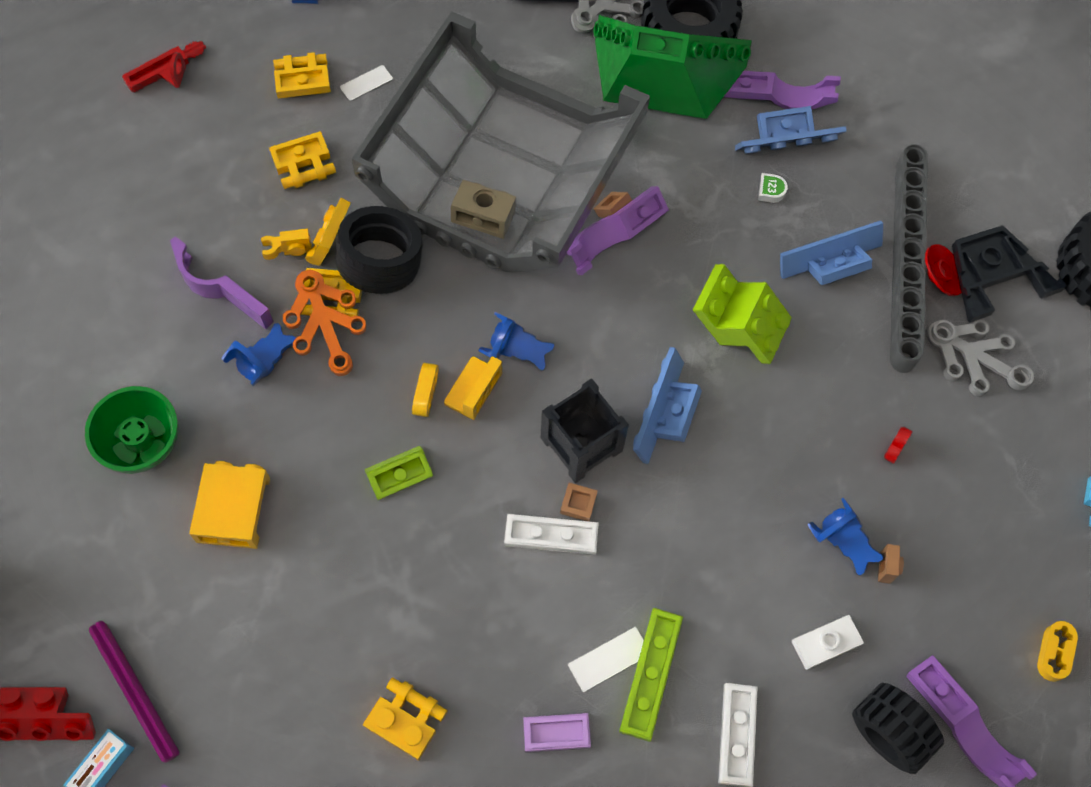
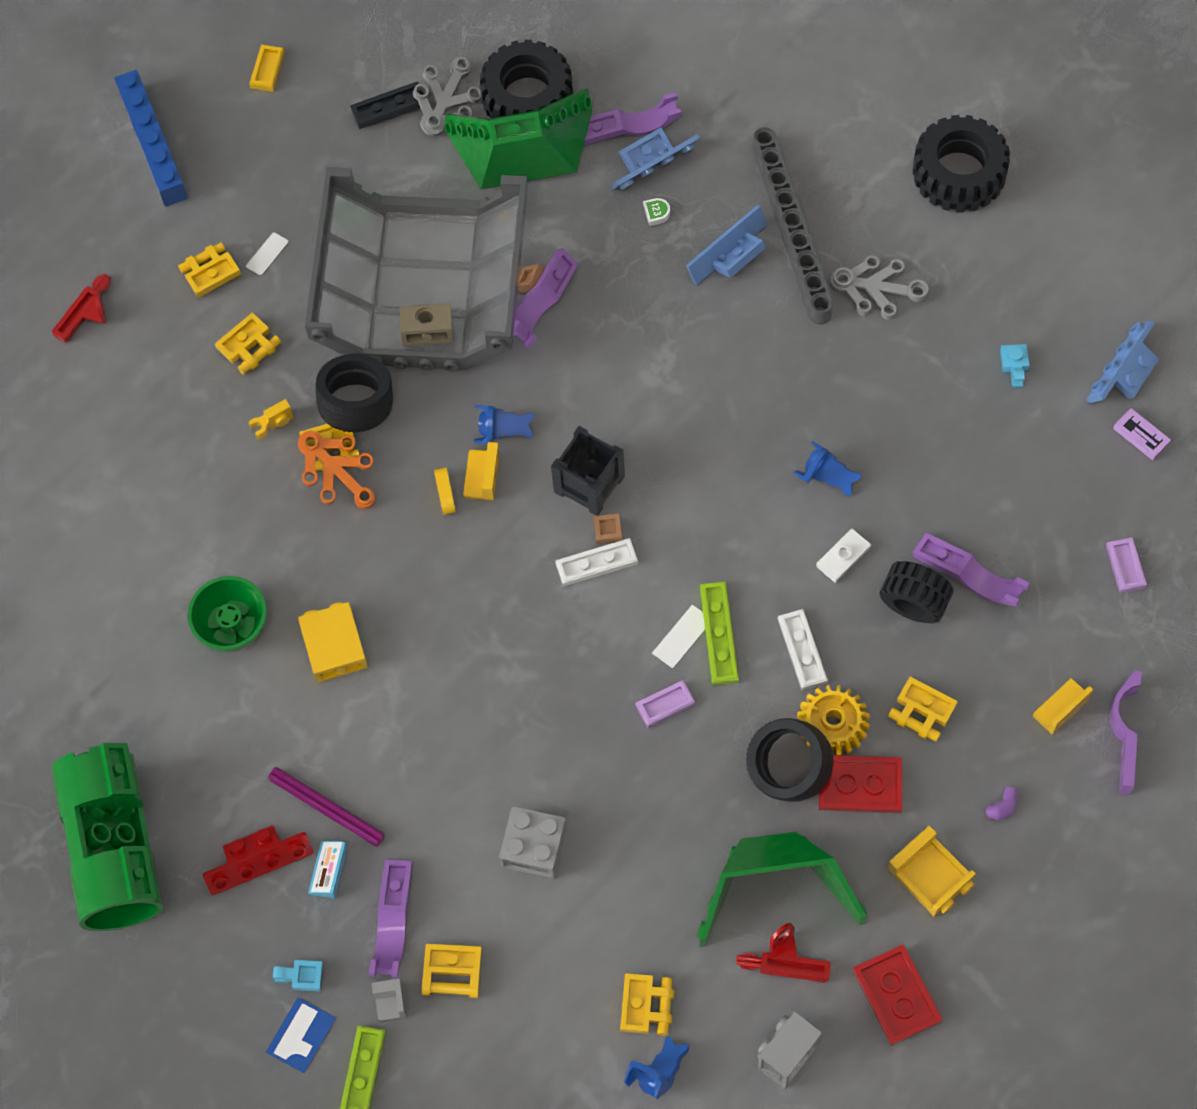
camera: 15 degrees left, 0 degrees up
(220, 287) = (238, 475): medium lavender piece -> none
(259, 360) = (296, 523): blue hair -> none
(328, 232) = (304, 395): yellow plate -> none
(399, 472) = (453, 564): lime slope -> none
(400, 727) = (543, 748): yellow plate -> none
(669, 408) = (648, 427): medium blue bracket -> none
(742, 313) = (675, 327): lime bracket -> none
(891, 565) = (869, 478): medium nougat plate -> none
(898, 444) = (840, 383): red tile -> none
(942, 269) = (825, 225): red dish -> none
(993, 259) = (862, 200): black wing -> none
(1065, 651) = (1025, 491): yellow beam -> none

